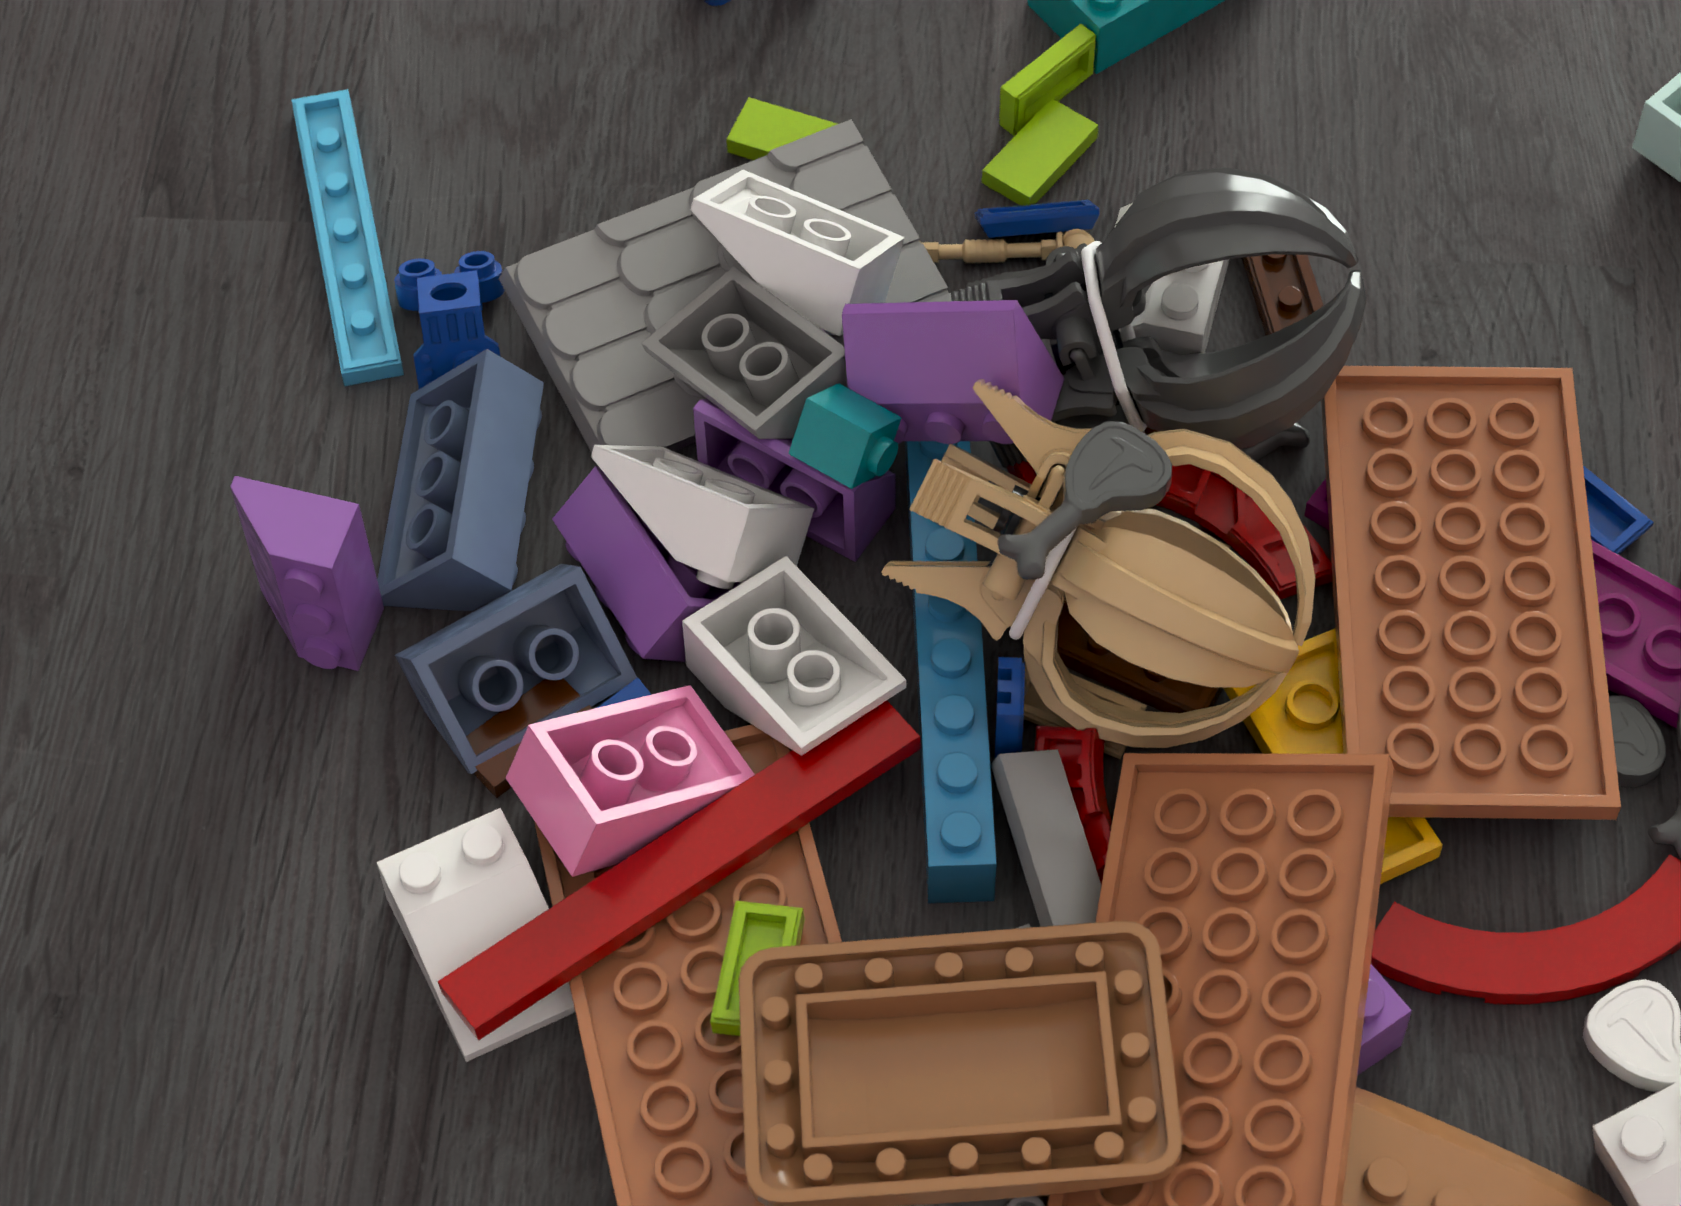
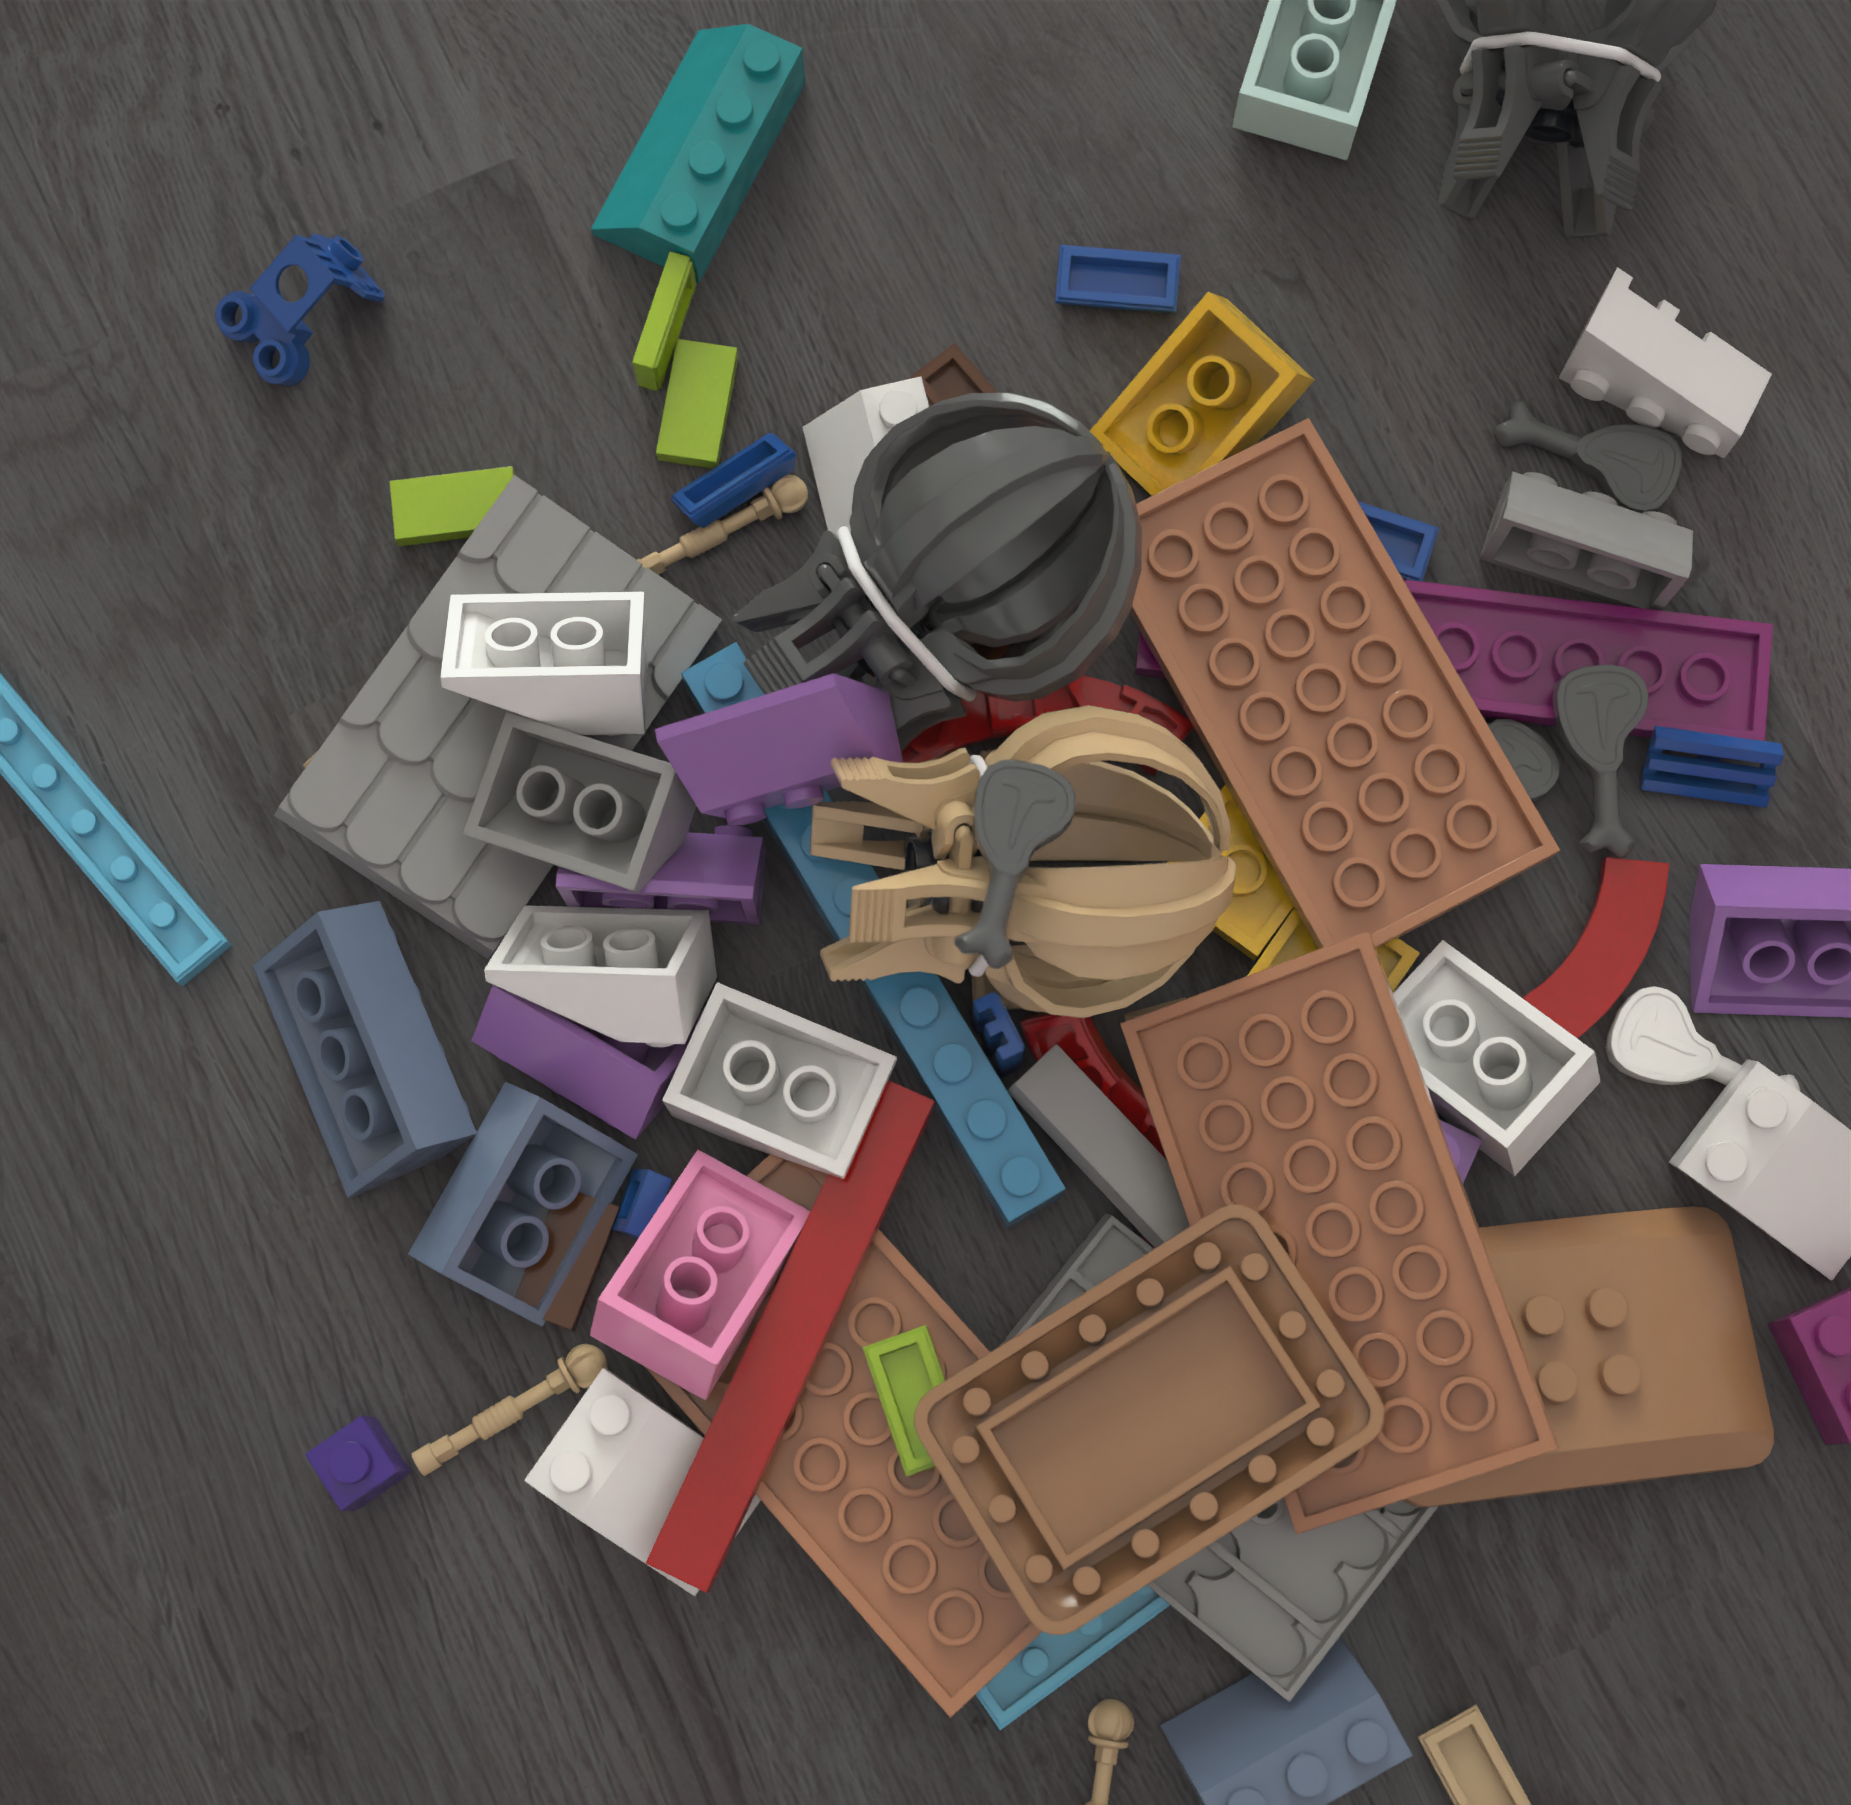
camera: 30 degrees left, 20 degrees up
(247, 795) = (358, 1463): none -> dark purple brick
(312, 570) = (294, 1231): medium lavender slope -> none
(388, 826) = (575, 1372): none -> tan piece
(449, 310) = (268, 895): blue piece -> none
(846, 436) = (719, 850): teal brick -> none
(1460, 955) = (1492, 1057): none -> white slope
(1462, 215) = (1117, 279): none -> blue tile
(1489, 314) = (1200, 397): none -> yellow slope

